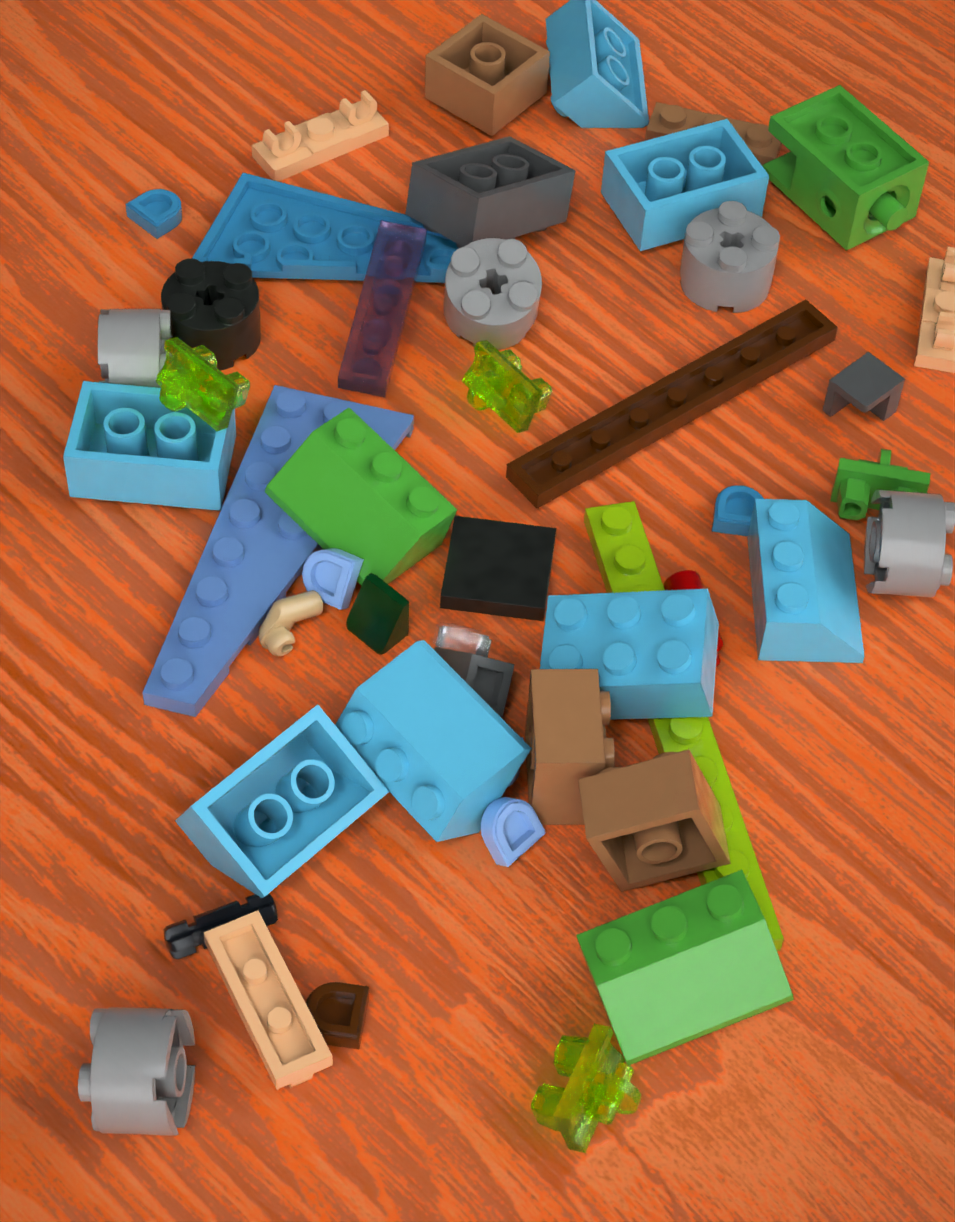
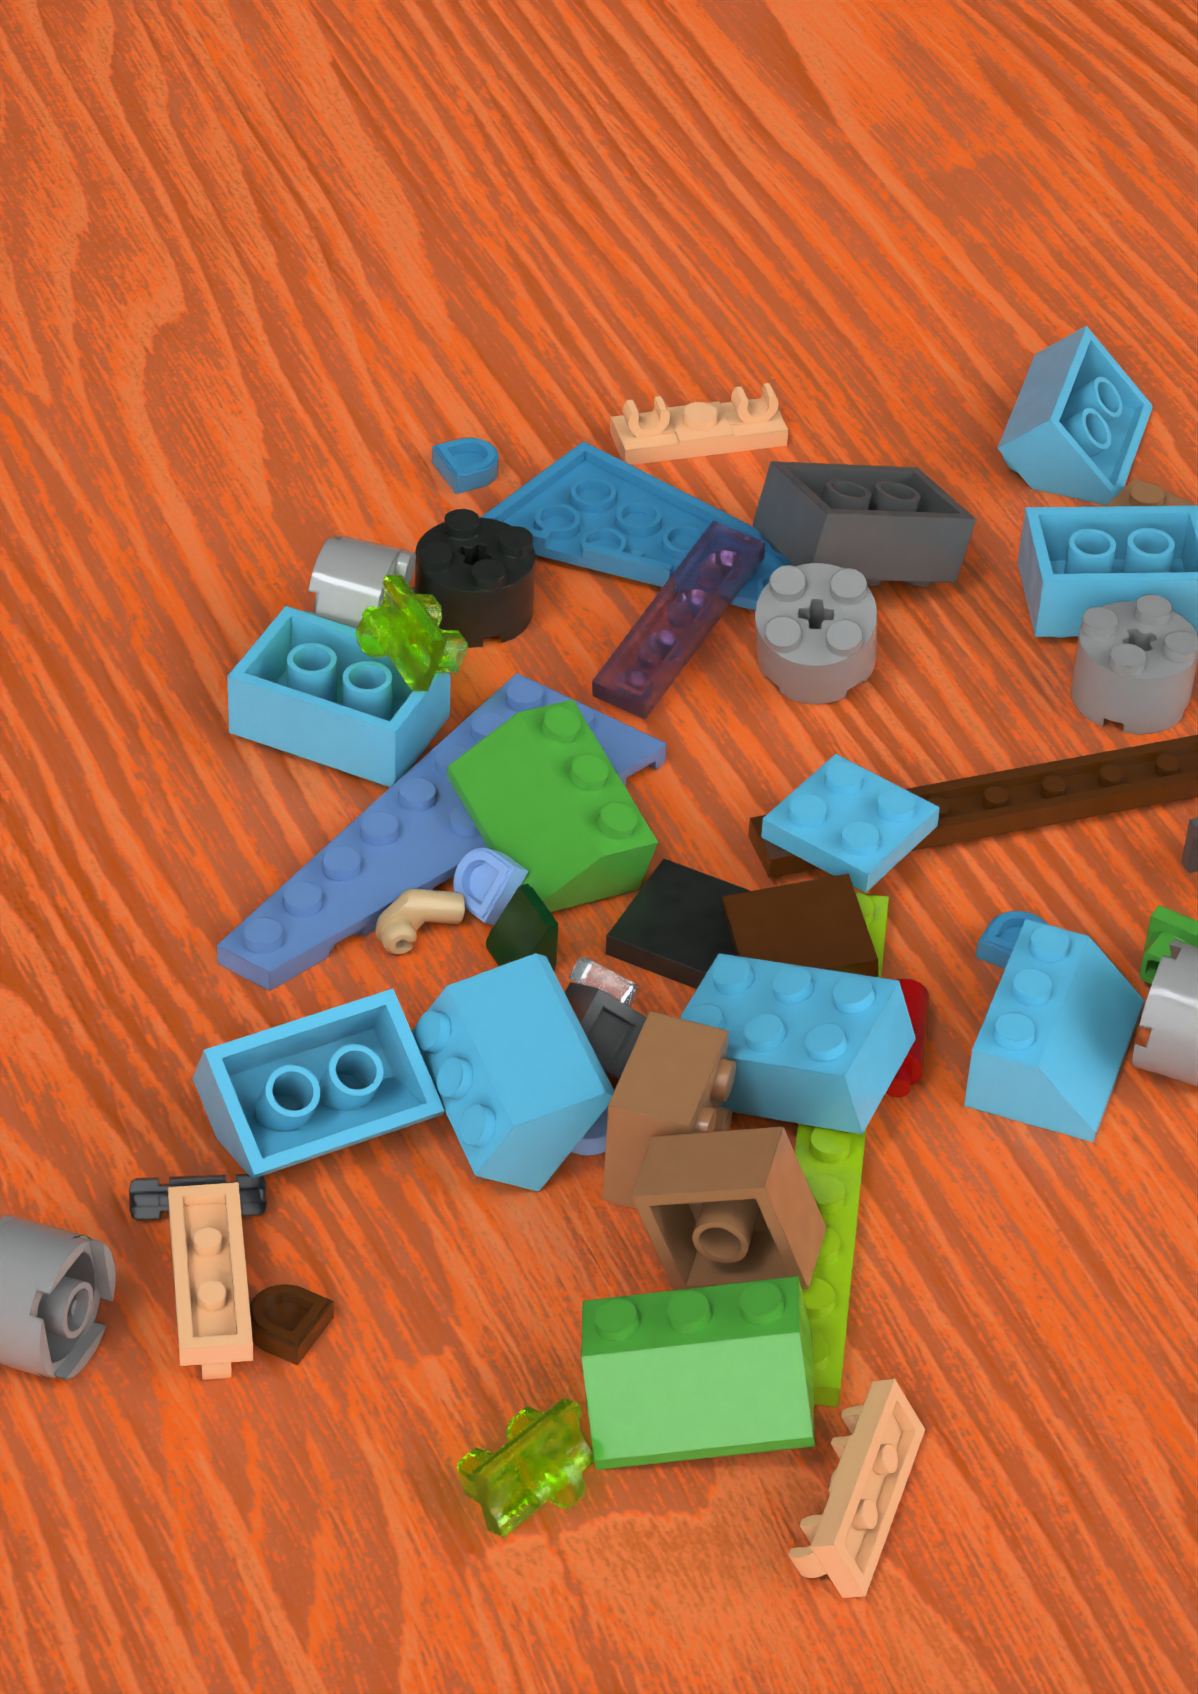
camera: 20 degrees right, 10 degrees down
(486, 74) = (929, 398): medium nougat brick -> none
(499, 383) = (786, 735): clear neon green hips -> none
(510, 829) = (570, 1189): light blue tile -> none
(585, 449) = (850, 822): none -> medium azure plate
(591, 552) = (803, 925): none -> reddish brown tile
(838, 1023) = (862, 1491): none -> light nougat plate

